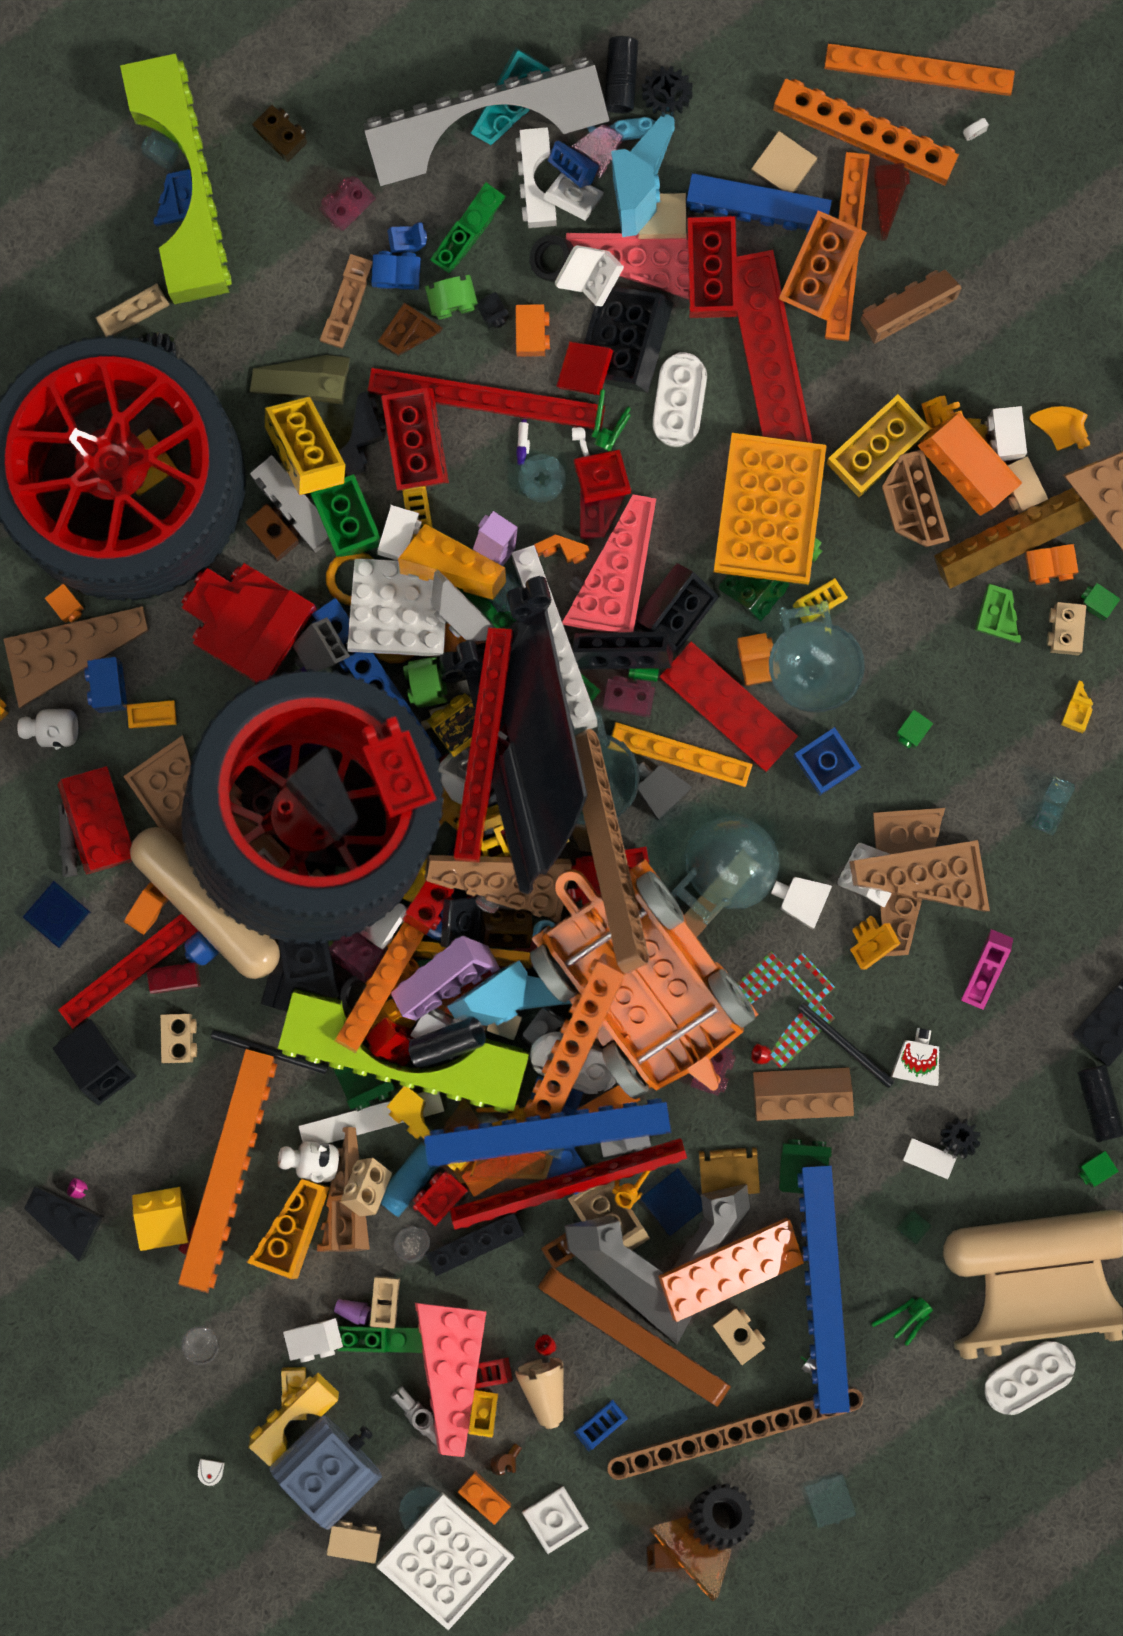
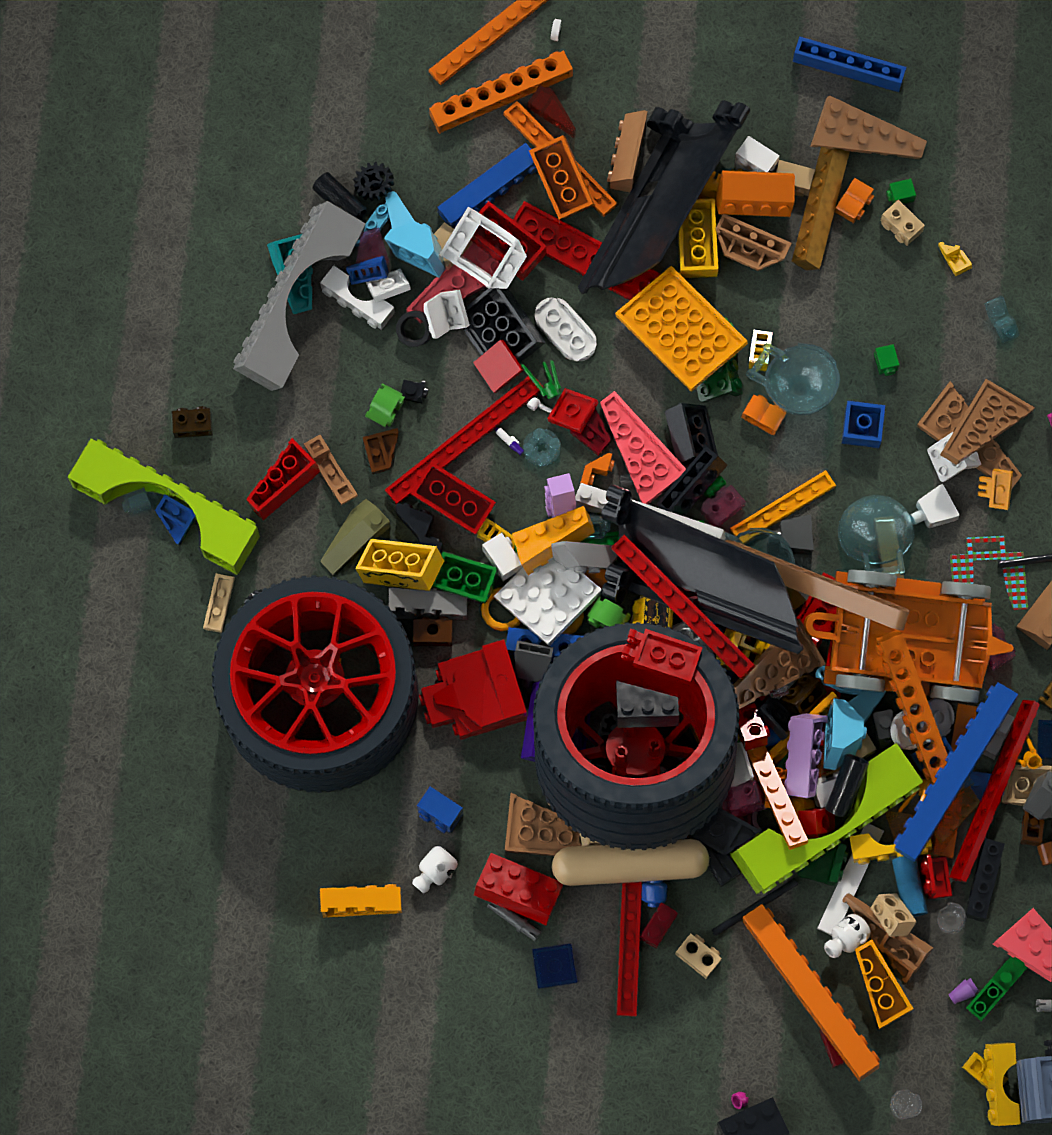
camera: 55 degrees left, 10 degrees down
(58, 653) = (391, 827): medium nougat wing -> none
(65, 604) = (365, 795): orange brick -> none
(93, 1062) = (669, 1019): black slope -> none
(146, 909) = (600, 904): orange slope -> none
(151, 714) = (480, 801): light orange tile -> none
(160, 1218) = (805, 1060): yellow slope -> none
(297, 266) = (283, 480): none -> red wedge
(313, 1339) = (961, 1030): white brick -> none
(348, 205) = (271, 419): clear pink brick -> none
(385, 1302) = (974, 965): tan brick -> none
(396, 271) = (338, 426): blue brick -> none
(407, 238) = (325, 402): blue bracket -> none
(468, 228) = (351, 362): green slope -> none
(531, 330) = (446, 378): orange brick -> none
(671, 223) = (460, 238): none -> white wedge
(728, 706) = (778, 455): red plate -> none
(760, 1054) = (1009, 608): red hinge -> none
(784, 163) = (477, 153): tan tile -> none
(853, 387) = (649, 223): none -> black panel
(998, 615) = (858, 256): bright green wing -> none
(1063, 426) = (777, 127): light orange arm -> none

